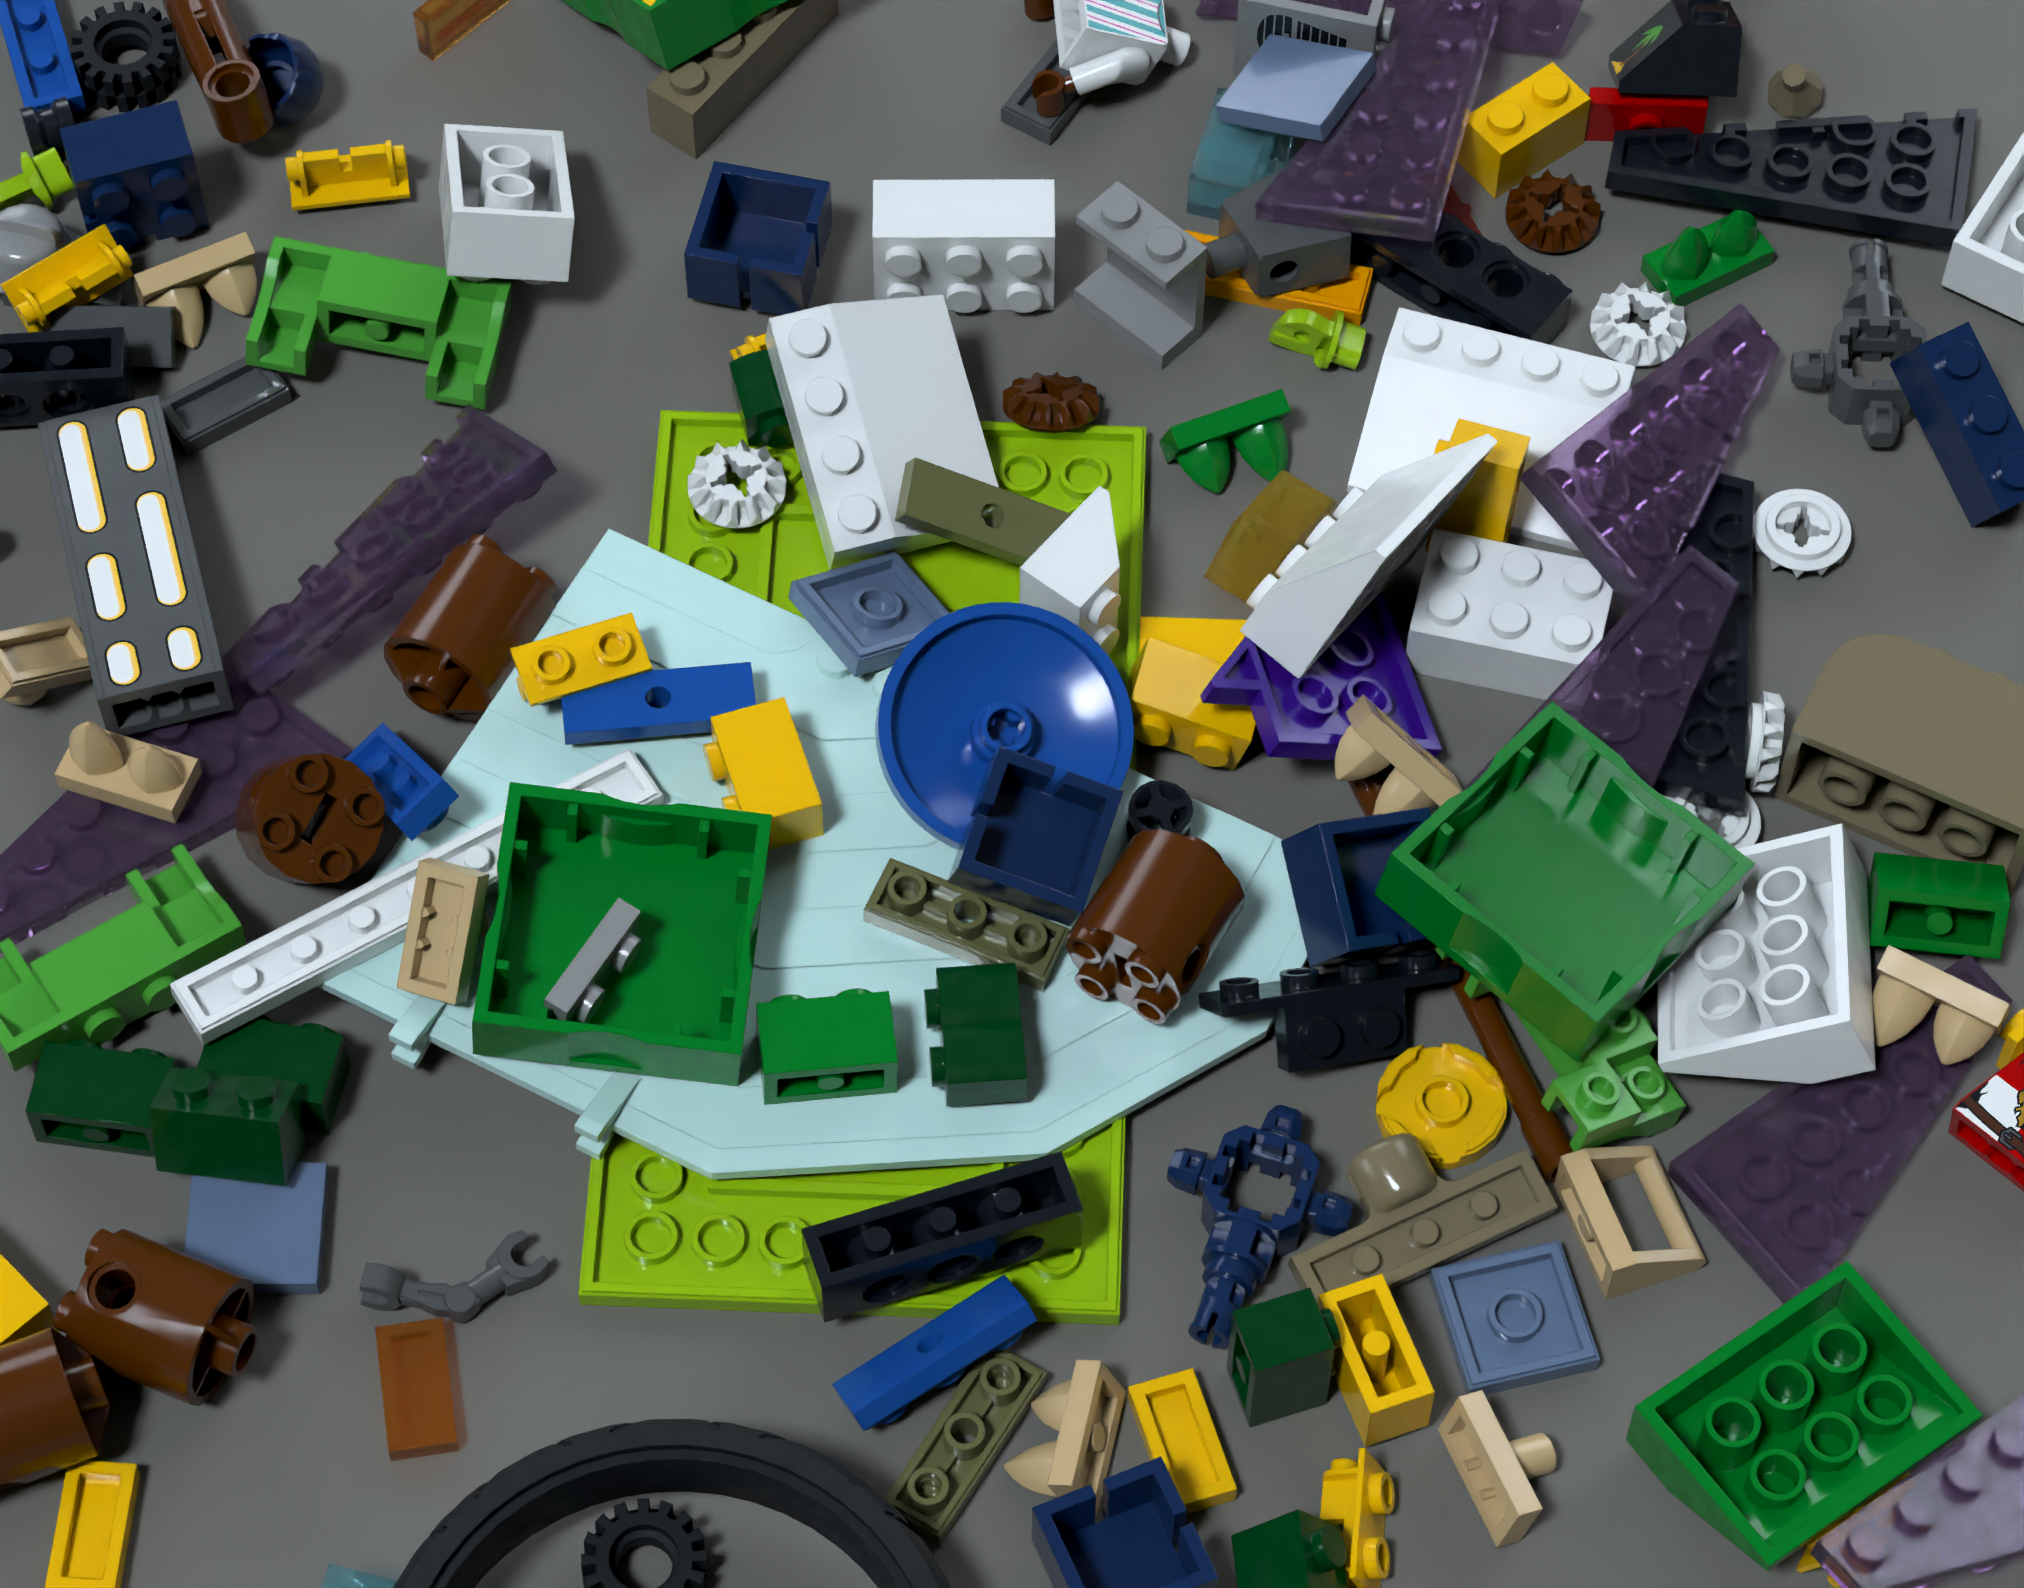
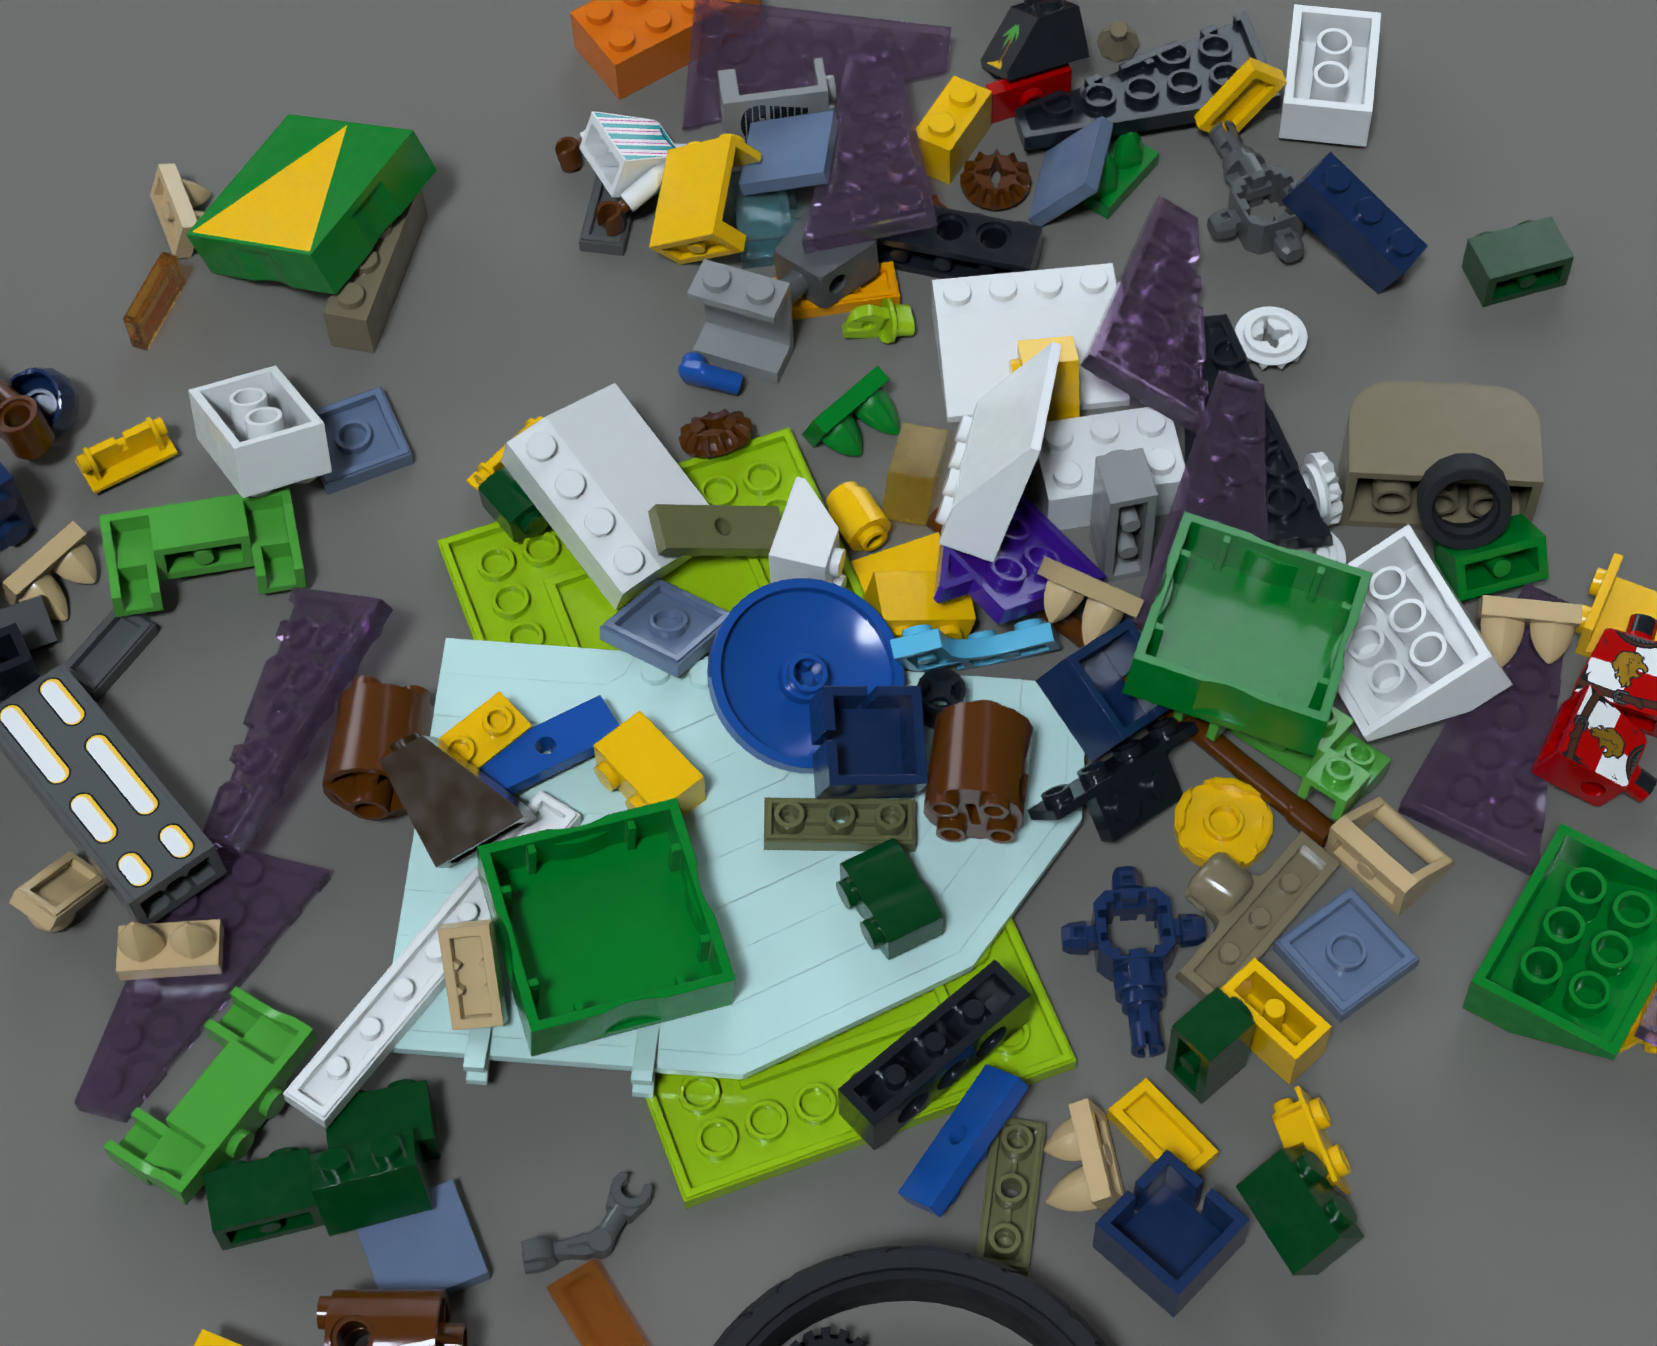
camera: 20 degrees left, 0 degrees up
(283, 800) = (328, 931): reddish brown cylinder -> none
(411, 790) = (380, 878): blue plate -> none
(511, 717) = (450, 799): none -> dark brown slope
(609, 947) = (602, 939): light grey plate -> none
(625, 256) = (362, 440): none -> sand blue tile
(725, 504) = (520, 590): white gear -> none
(758, 239) = (453, 393): dark blue piece -> none
(826, 1046) = (786, 950): green brick -> none
(966, 239) = (605, 340): white brick -> none
(1067, 320) = (697, 372): none -> blue arm
(1151, 101) = (694, 199): none -> yellow panel
(1165, 754) = (930, 648): none -> medium azure plate
(1174, 566) = (858, 516): none -> yellow brick
(1486, 677) = (1123, 514): none -> light grey brick
(1496, 1468) = (1388, 1063): tan tile -> none
(1627, 341) = (1091, 249): white gear -> none
(1644, 234) = (1071, 171): none -> sand blue tile
(1905, 862) = (1475, 533): none -> black tyre
(1906, 214) = (1241, 96): none -> yellow tile
(1944, 1194) = (1594, 751): none -> torso

